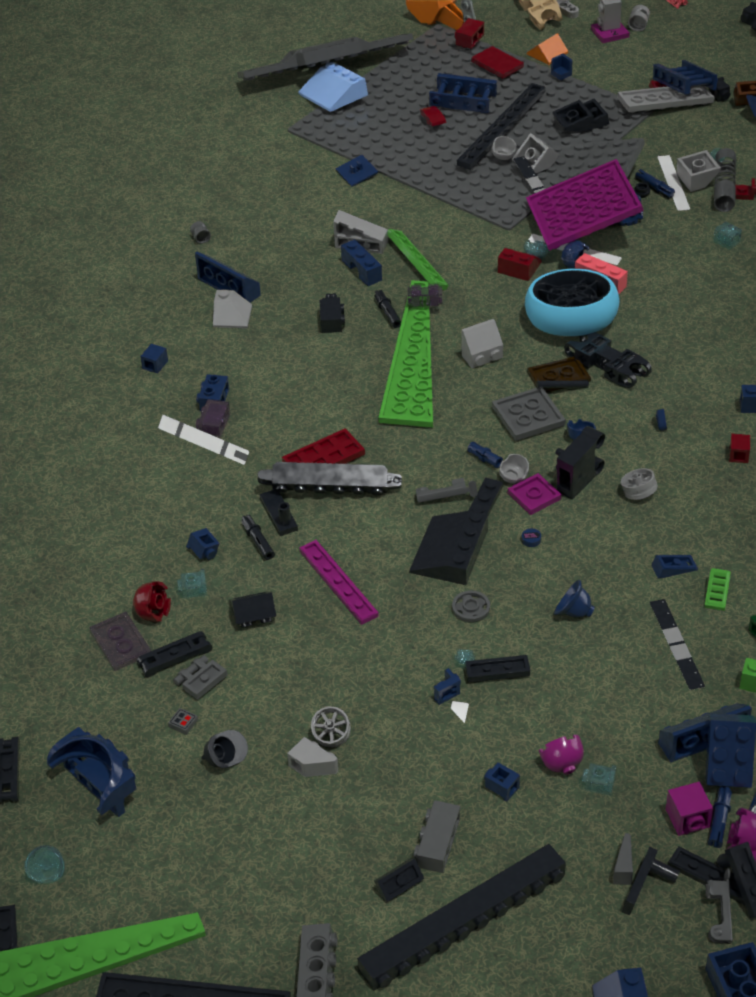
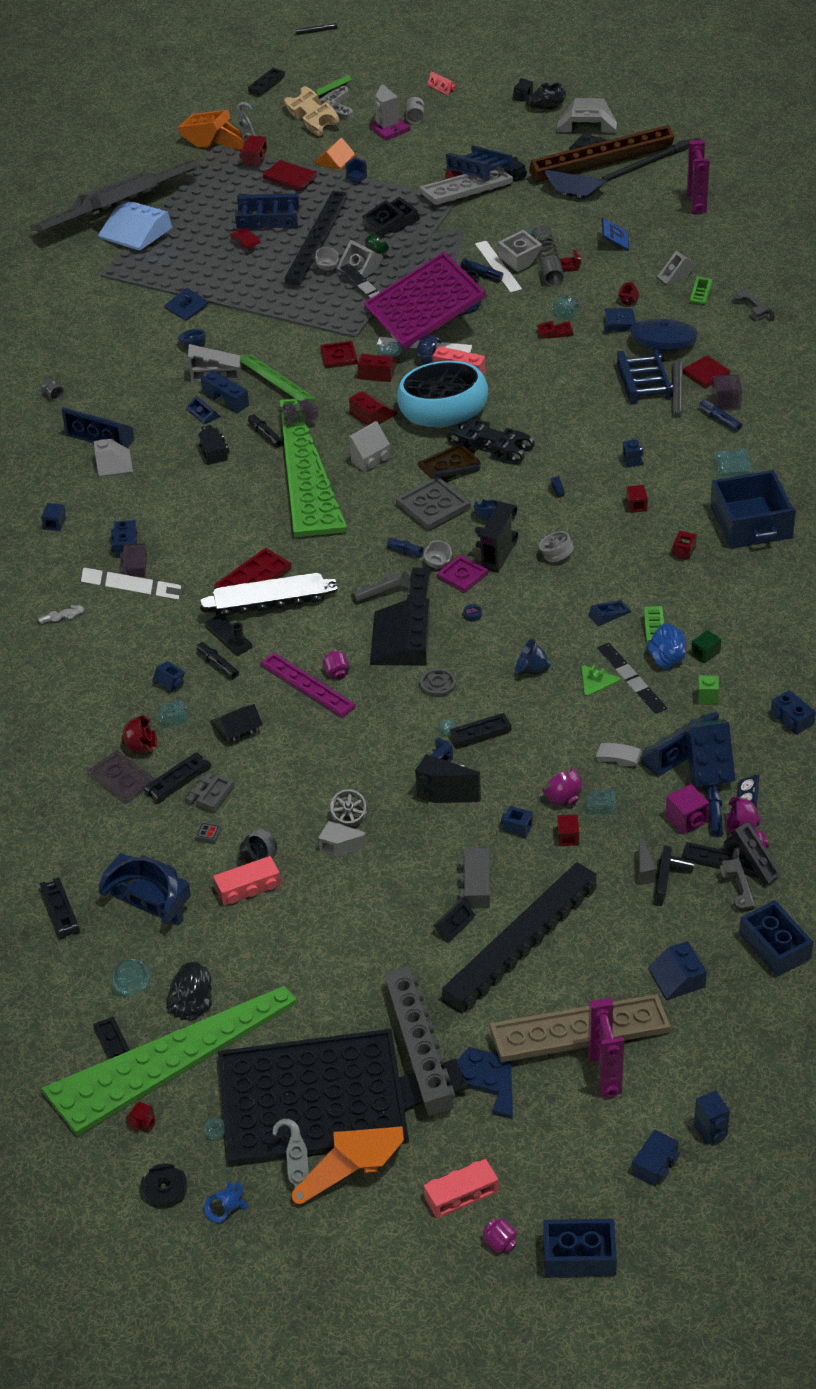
camera: 15 degrees left, 0 degrees up
(100, 896) = (190, 992): none -> black piece
(132, 459) = (68, 614): none -> light grey animal
(201, 784) = (247, 880): none -> coral brick
(334, 277) = (202, 410): none -> dark blue slope
(350, 205) = (194, 337): none -> dark blue hat
(372, 566) = (336, 664): none -> magenta head
(439, 720) = (446, 782): none -> black slope
(485, 244) = (338, 354): none -> dark red tile
(498, 305) = (369, 409): none -> dark red slope
(553, 141) = (372, 242): none -> dark green hair
(553, 803) = (568, 830): none -> dark red panel
(635, 726) = (622, 754): none -> light grey slope
(638, 638) = (596, 680): none -> bright green piece
(705, 256) = (549, 330): none -> dark red slope
(723, 617) = (667, 646): none -> blue hair

